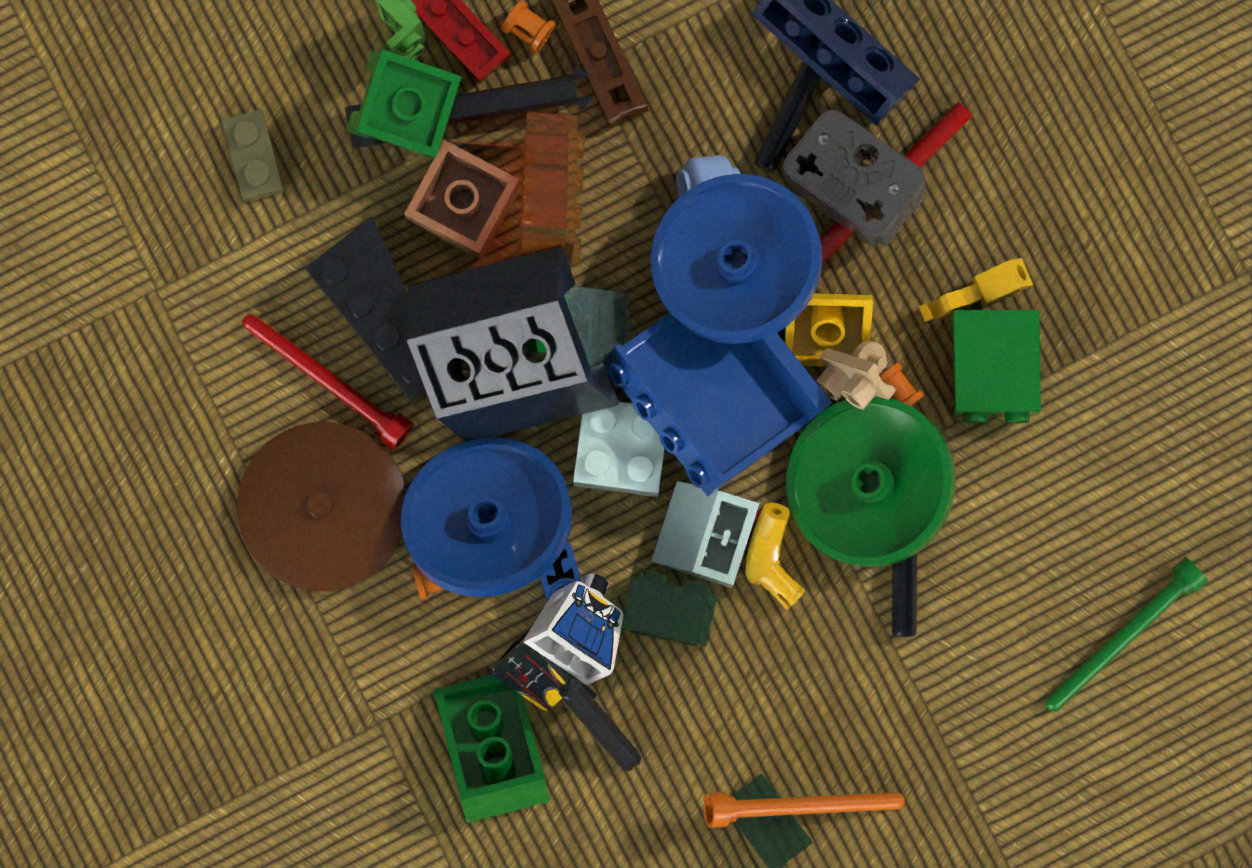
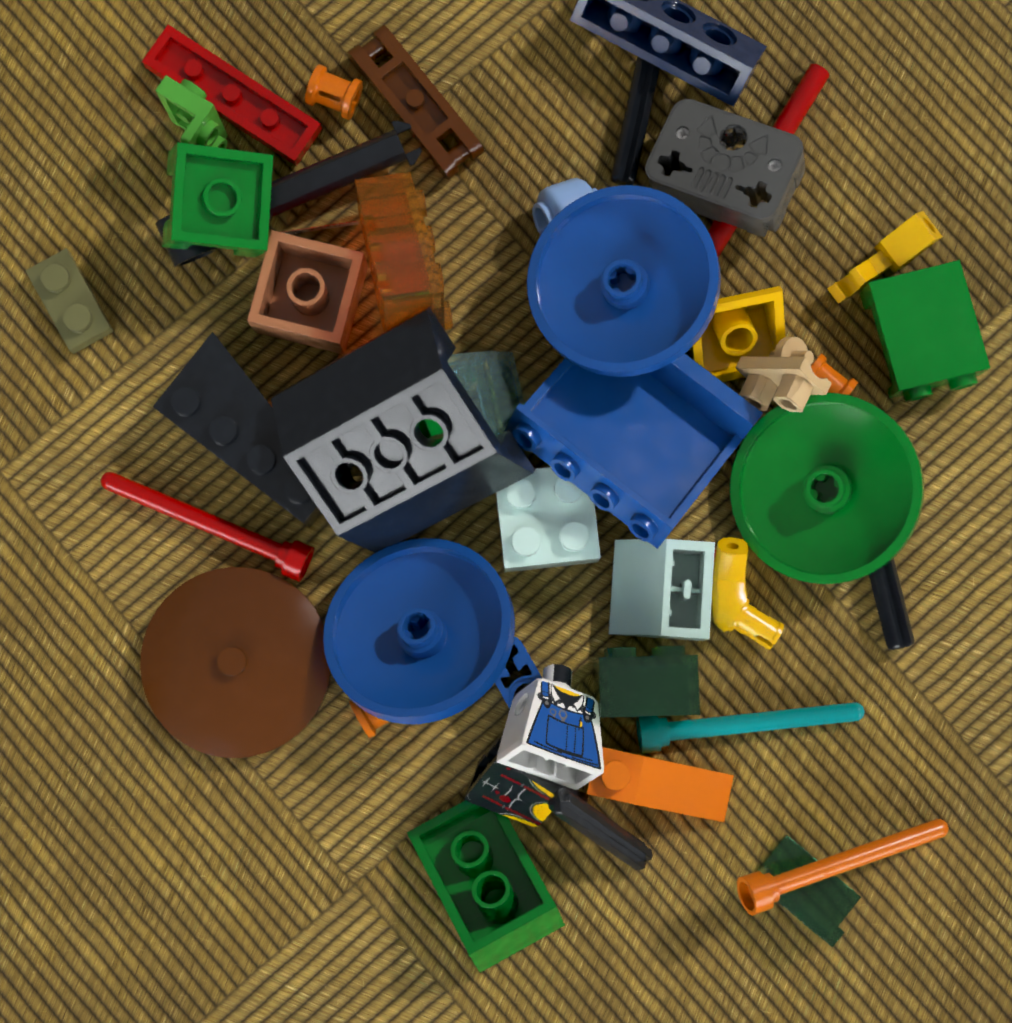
camera: 20 degrees left, 0 degrees up
(663, 701) = (662, 785): none -> orange slope
(672, 657) = (658, 732): none -> teal piece

